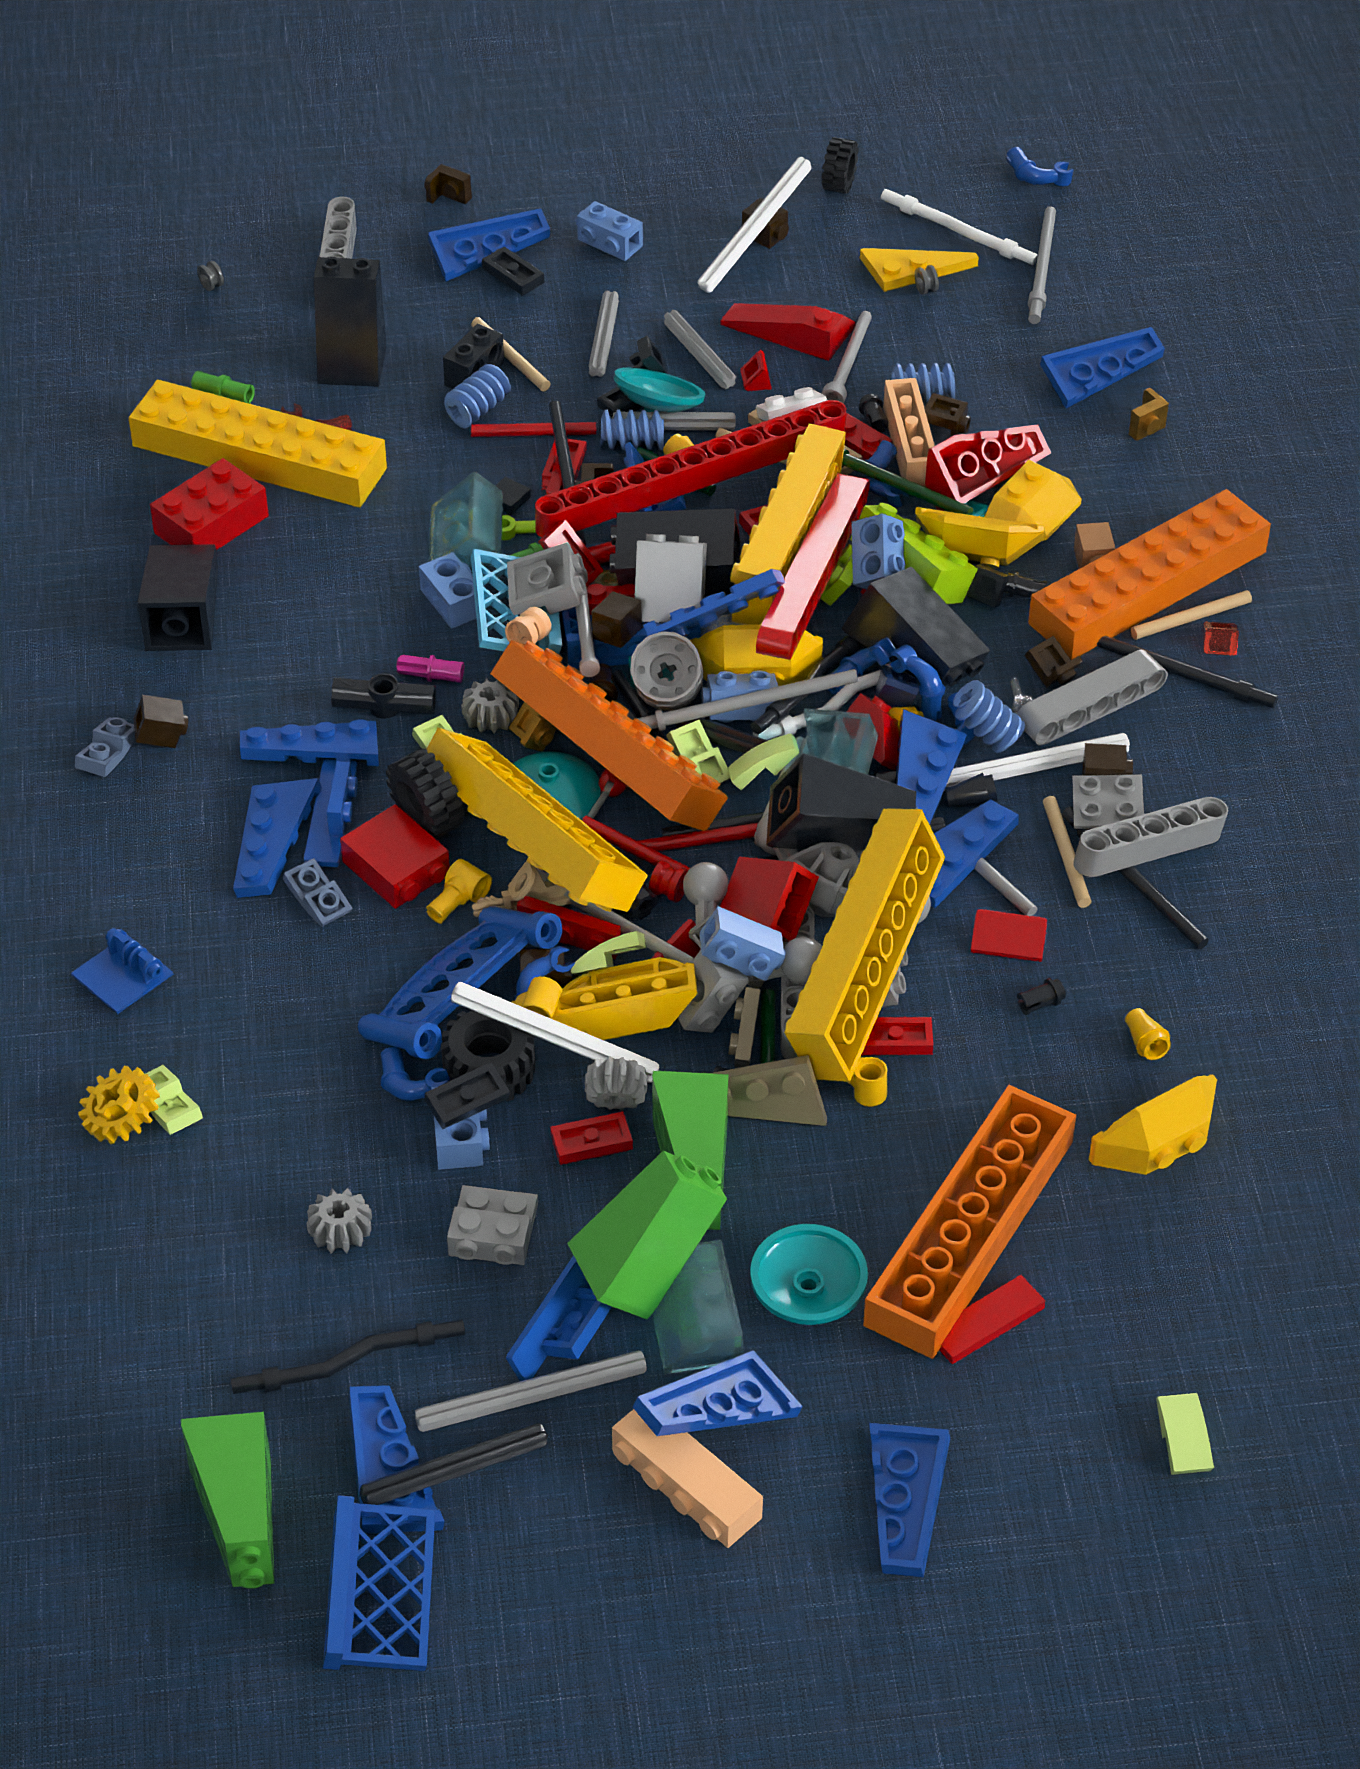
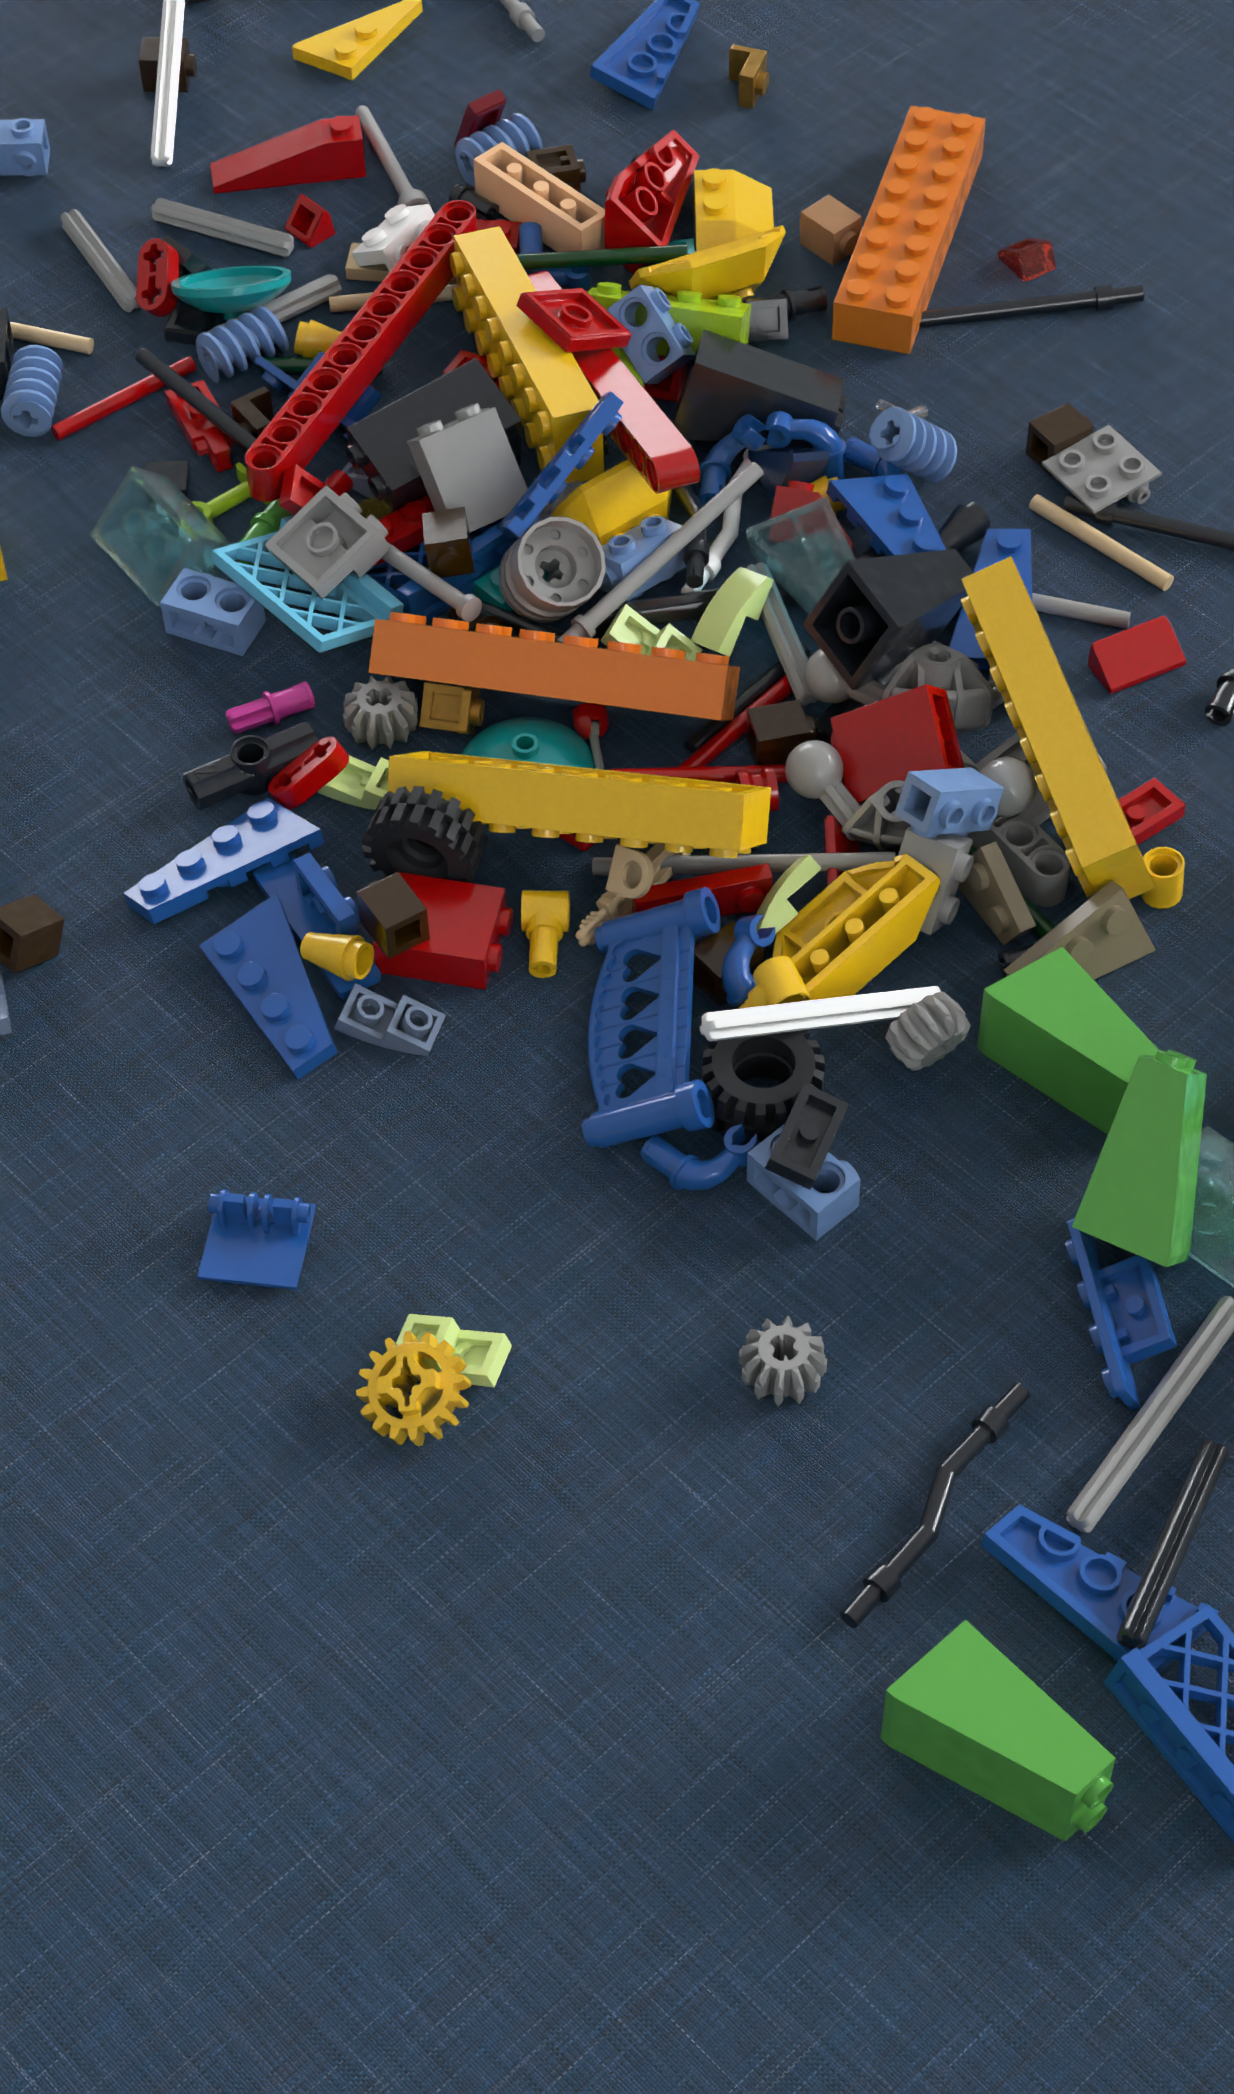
camera: 35 degrees left, 5 degrees up
(318, 835) = (339, 953): none -> yellow cone
(358, 826) = (393, 915): none -> dark brown brick
(409, 718) = (308, 773): none -> red beam
(492, 1225) = (940, 1262): light grey plate -> none
(531, 624) = (360, 602): light nougat wheel -> none
(591, 1138) = (948, 1106): red plate -> none
(622, 355) = (157, 277): none -> red beam
(718, 848) = (777, 730): none -> dark brown brick
(822, 515) = (574, 319): none -> red tile
(922, 352) = (481, 113): none -> dark red tile
(926, 279) = (392, 45): dark grey bush -> none
(1033, 761) = (988, 463): white axle -> none
(1052, 662) = (906, 364): dark brown bracket -> none
(1092, 696) = (977, 373): light grey beam -> none
(1150, 836) = (1178, 481): light grey beam -> none
(1191, 614) = (979, 250): tan bar -> none

